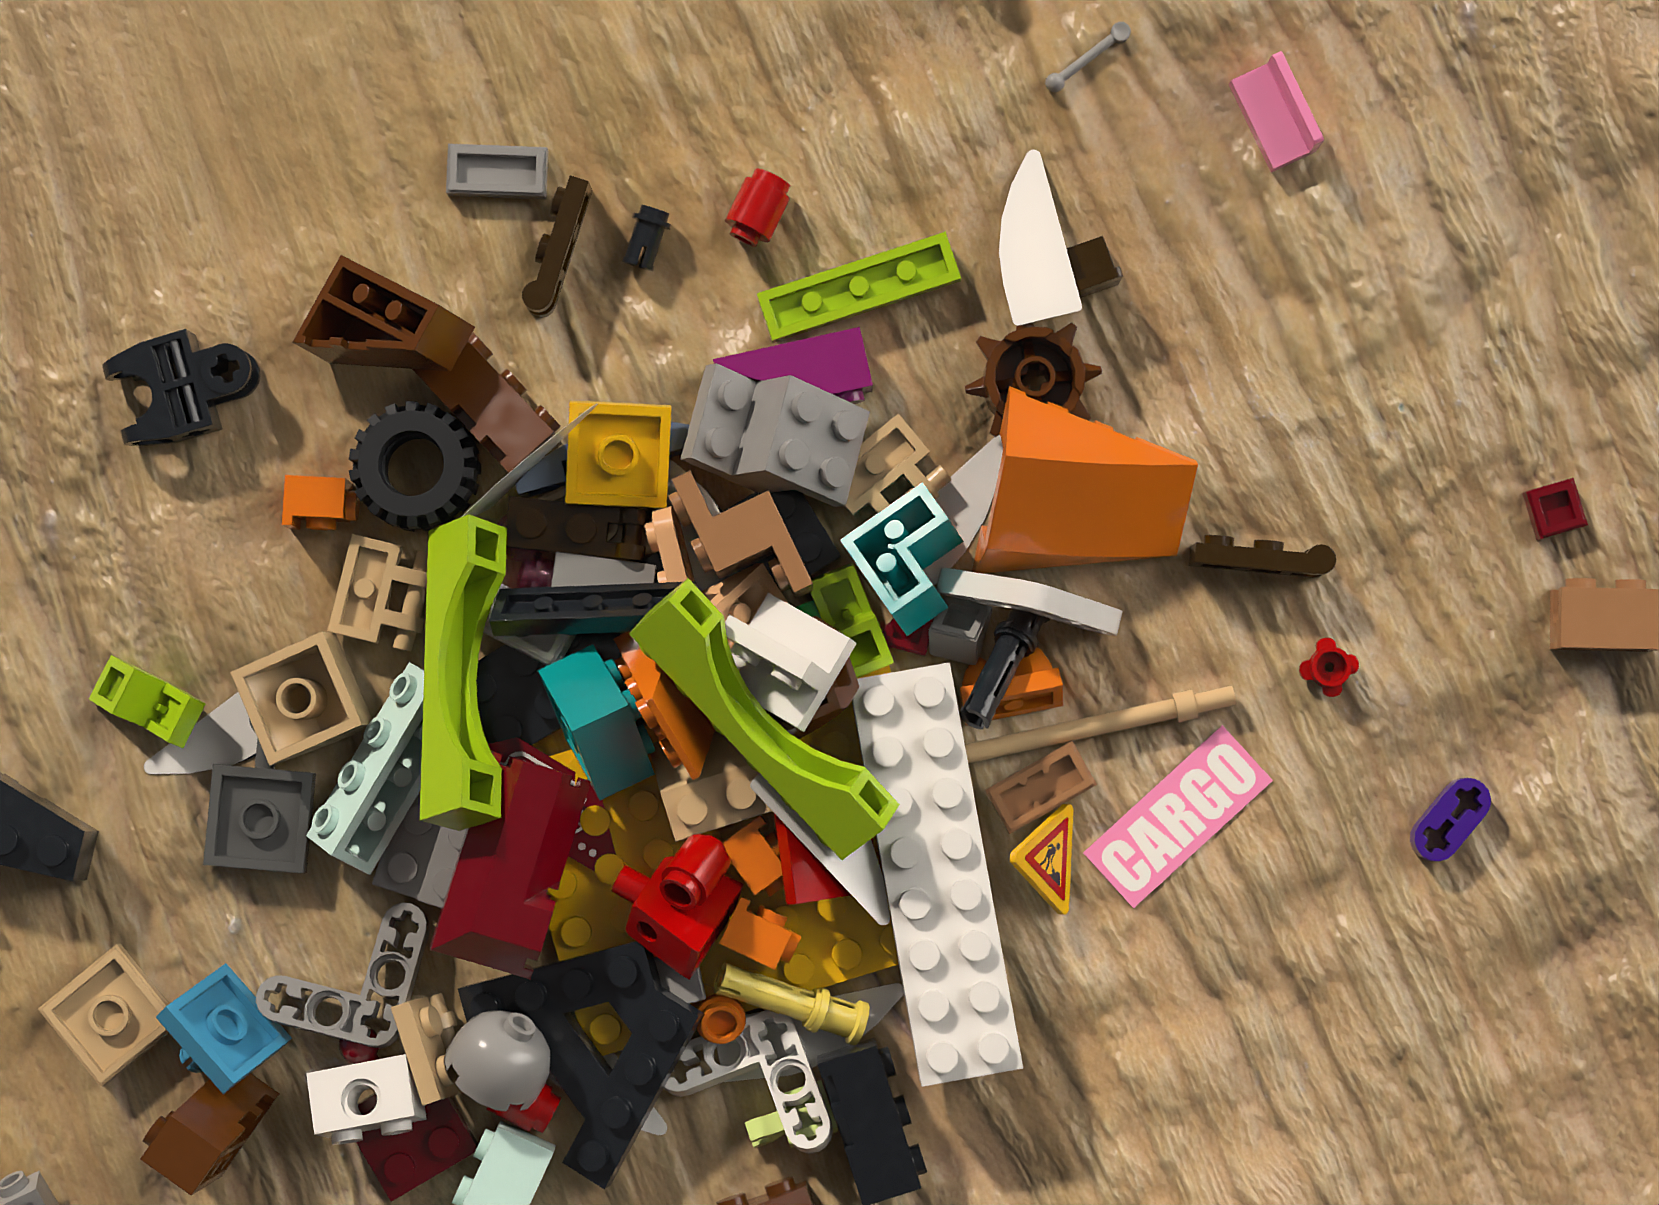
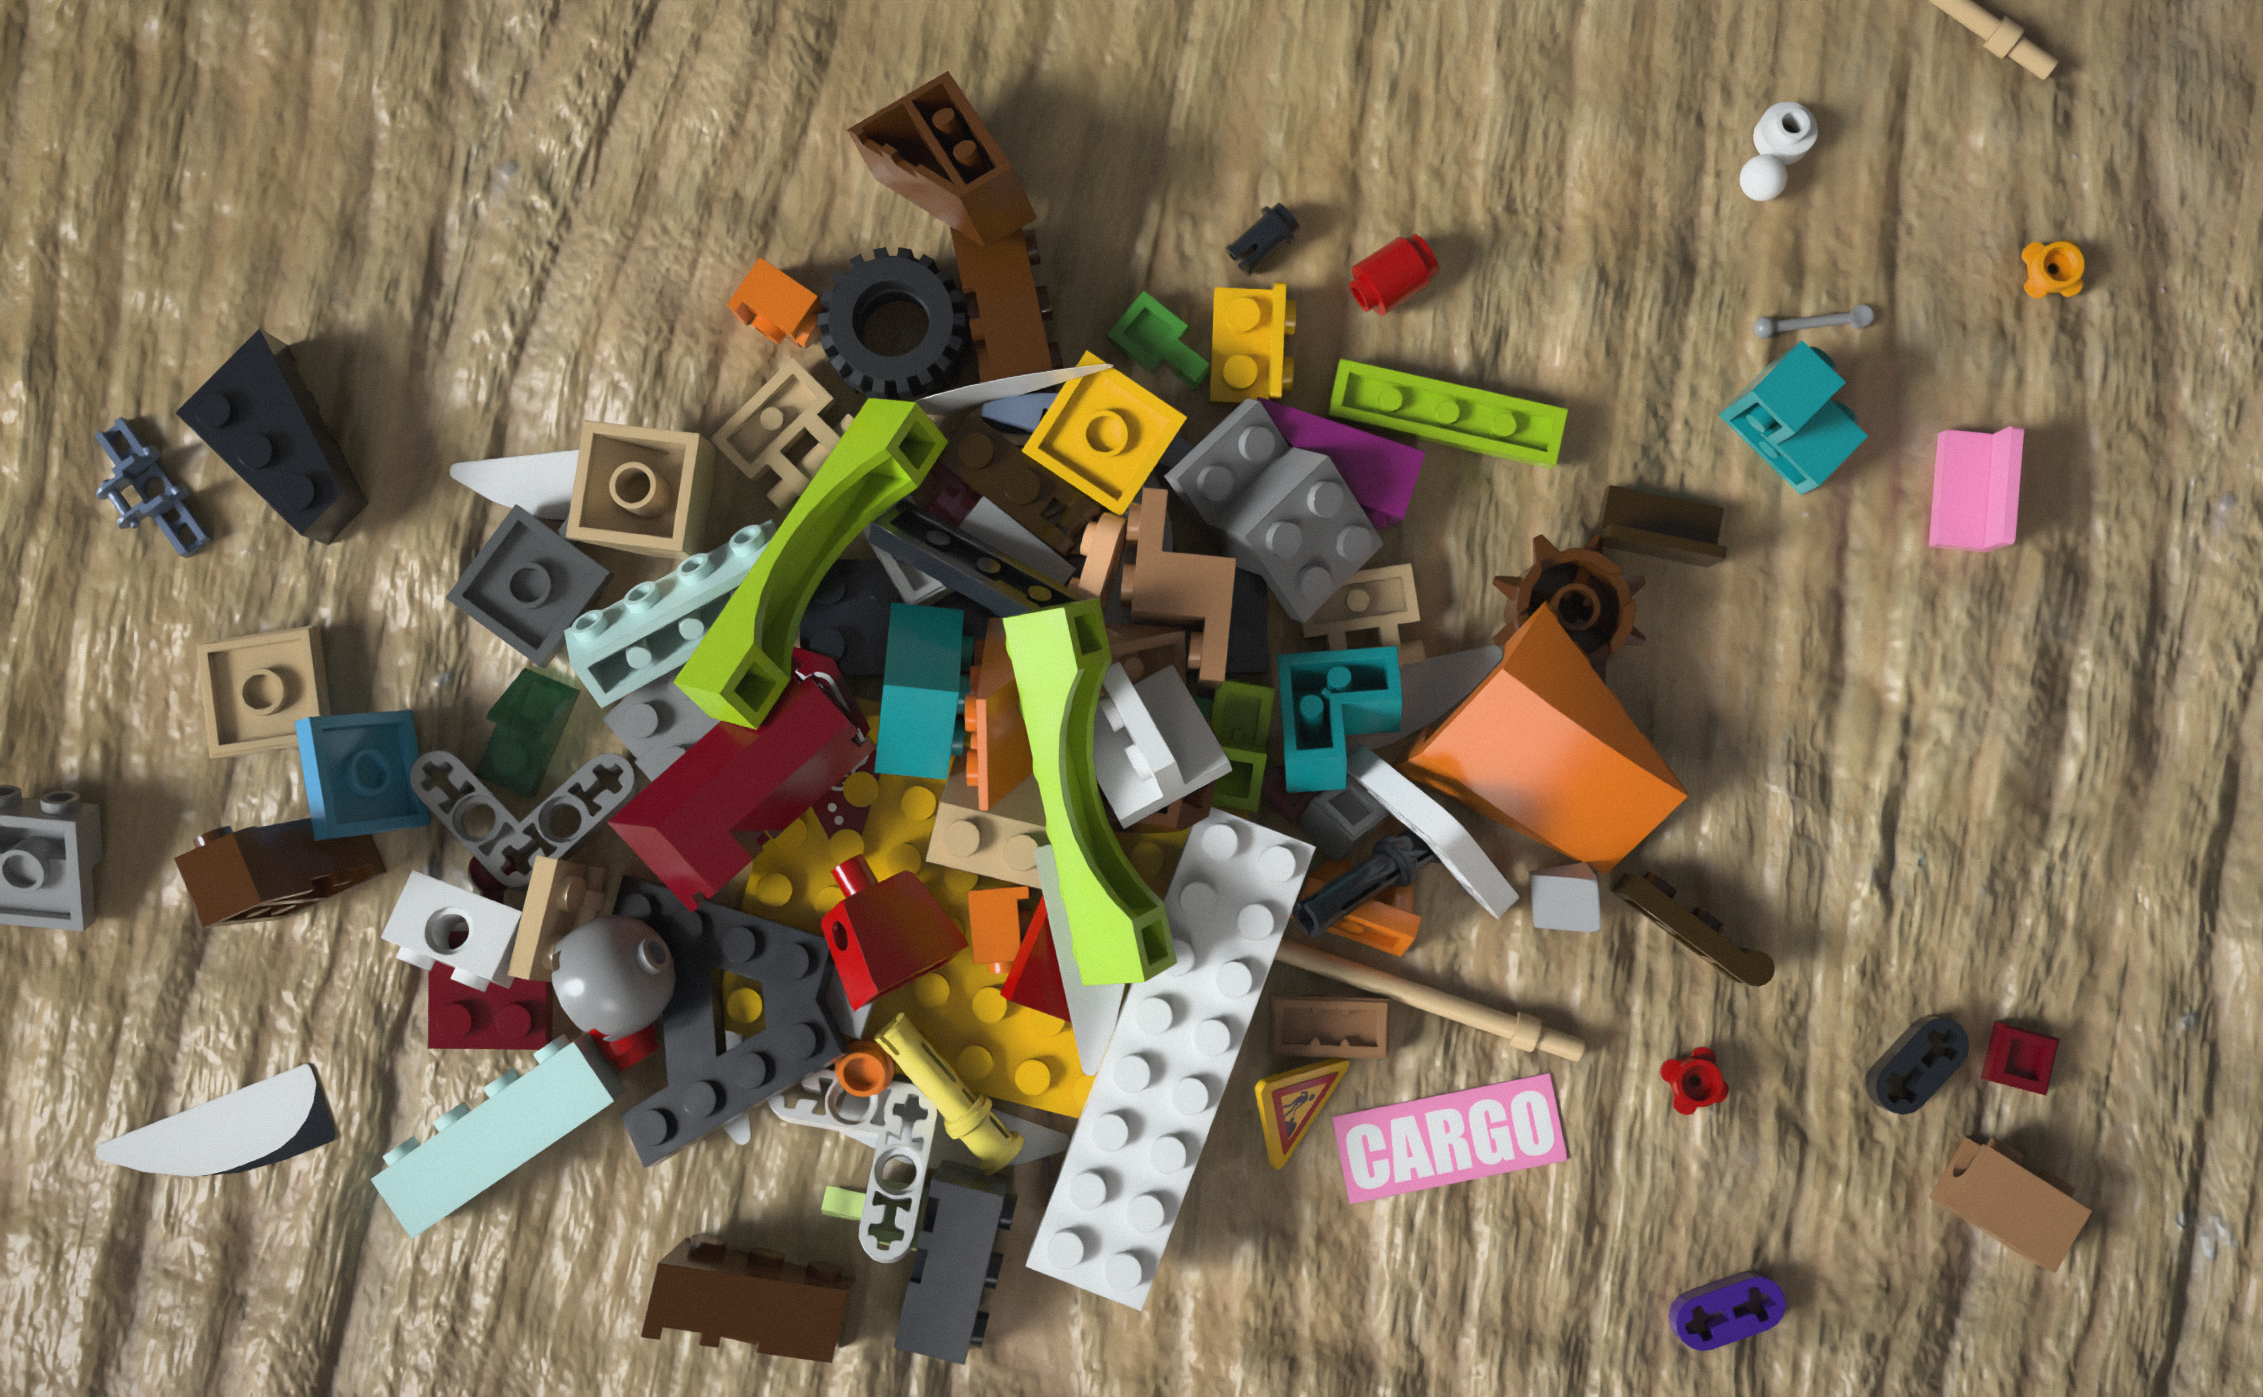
camera: 30 degrees right, 0 degrees up
(147, 701) = (490, 403): lime slope -> none
(183, 385) = (715, 111): black piece -> none
(321, 927) = (526, 731): none -> clear green slope
(497, 171) = (1154, 87): light grey tile -> none
(557, 249) = (1168, 196): dark brown plate -> none
(609, 359) = (1154, 337): none -> bright green plate
(684, 323) = (1250, 345): none -> yellow bracket
(694, 871) = (925, 904): red brick -> none
(760, 935) = (955, 1007): orange brick -> none
(1033, 249) = (1647, 481): white sticker -> none
(1115, 142) = (1793, 420): none -> teal brick
(1156, 591) = (1565, 898): none -> light grey slope
(1494, 561) = (1927, 1074): none -> black beam

